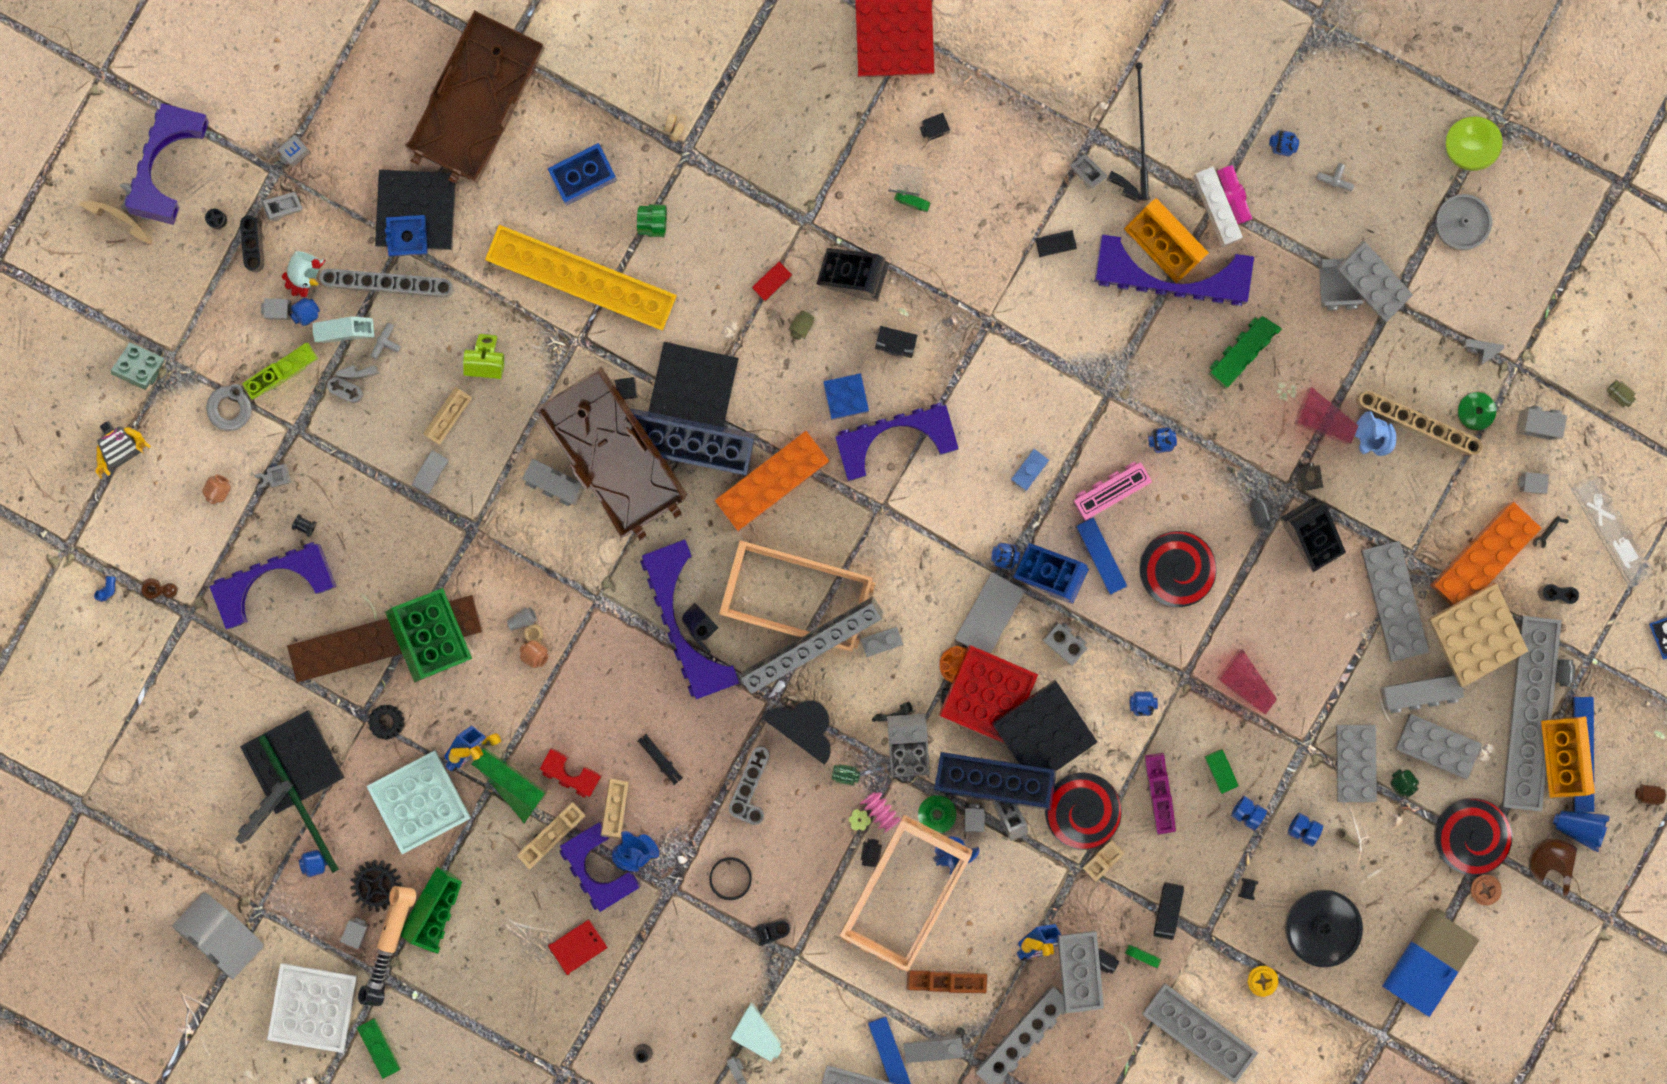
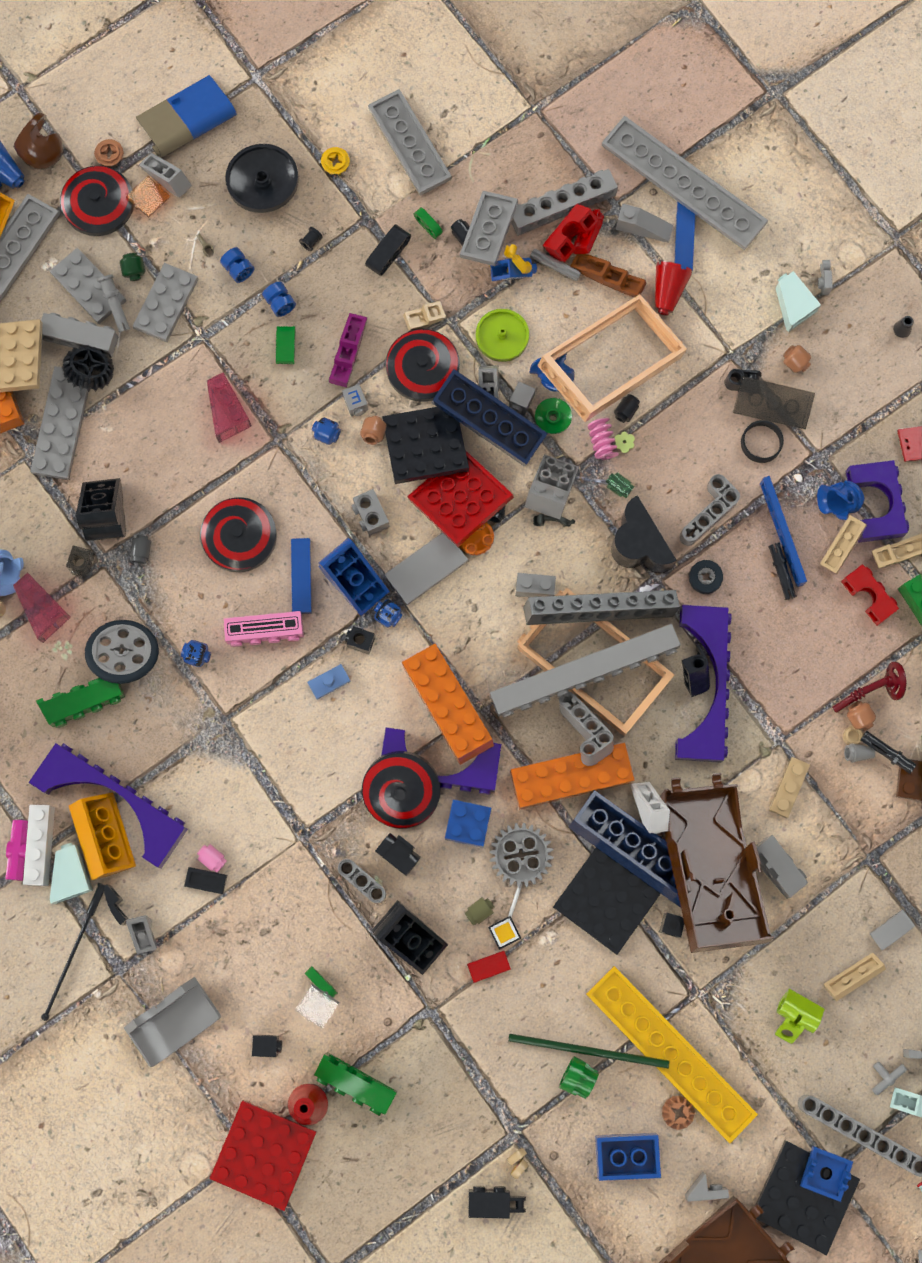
camera: 160 degrees left, 10 degrees down
(498, 630) = (896, 757): none -> black pin
(505, 173) = (699, 1190): none -> light grey slope
(520, 696) = (889, 681): none -> dark red dish
(559, 238) = (669, 1115): none -> nougat gear
(571, 559) = (789, 787): none -> tan plate
(654, 247) = (589, 1051): none -> dark green piece
(675, 797) = (783, 531): none -> blue tile
(680, 85) = (493, 1203): none -> black brick
(689, 482) = (651, 807): none -> white slope
(731, 975) = (797, 358): none -> nougat head
(735, 919) = (774, 402): none -> clear smoke tile
(736, 717) = (715, 574): none -> black bush
(771, 318) = (504, 931): none -> piece
(776, 376) = (524, 872): none -> light grey gear
(781, 530) = (583, 725): none -> light grey beam
(802, 579) = (585, 670): none -> light grey brick
(842, 130) = (355, 1083): none -> green wedge
(875, 101) = (314, 1098): none -> red cone
(882, 993) = (669, 285): none -> red cone
(910, 297) = (353, 876): none -> light grey beam
(912, 494) = (448, 704): none -> orange brick
(919, 399) = (401, 789): none -> black dish
(983, 1014) = (585, 242): none -> red hinge
(1001, 969) = (555, 265): none -> light grey axle
(1007, 992) = (579, 220): none -> red arch
(1010, 519) = (366, 646): none -> black brick
(1021, 875) = (502, 335): none -> lime piece
(1025, 110) = (173, 1023): none -> light grey panel
(1059, 265) = (211, 858): none -> bright pink brick
(1099, 724) = (373, 430): none -> nougat head
(1129, 745) = (355, 400): none -> light grey brick
(1178, 194) = (69, 874): none -> light aqua slope
(1209, 396) = (110, 631): none -> wedge
(1383, 670) = (92, 377): none -> black gear
(1409, 743) = (110, 294): none -> light grey pin
(1420, 891) = (166, 174): none -> light grey slope
(1425, 861) = (148, 196): none -> clear orange piece

